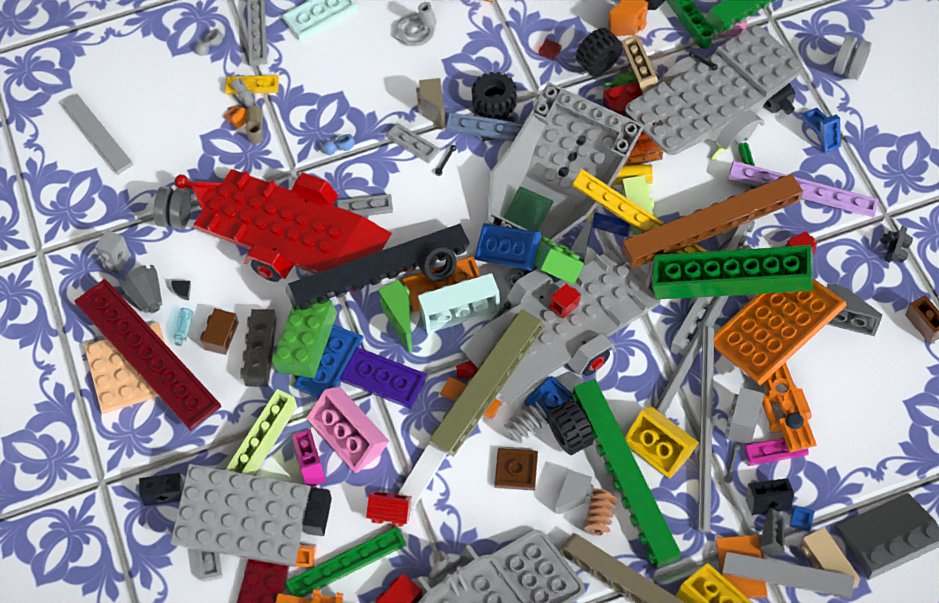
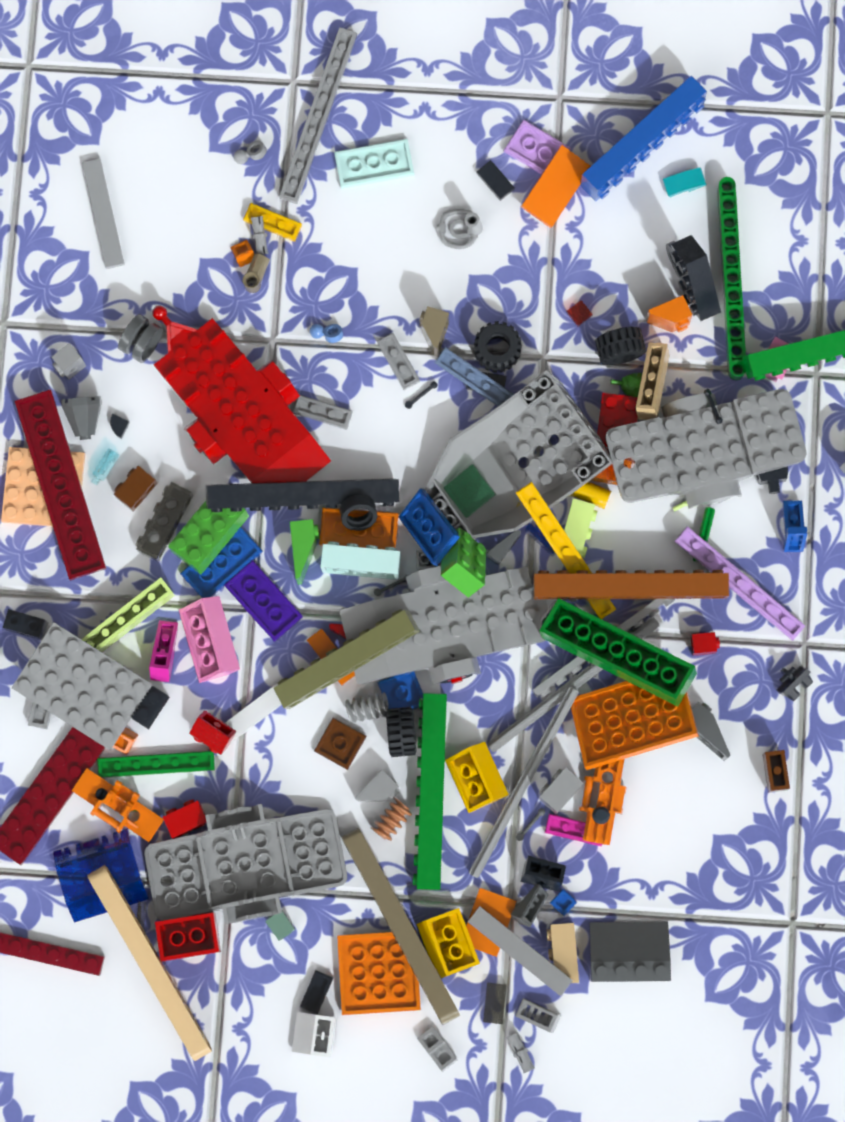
camera: 25 degrees right, 20 degrees up
(565, 301) = (453, 610): red brick -> none

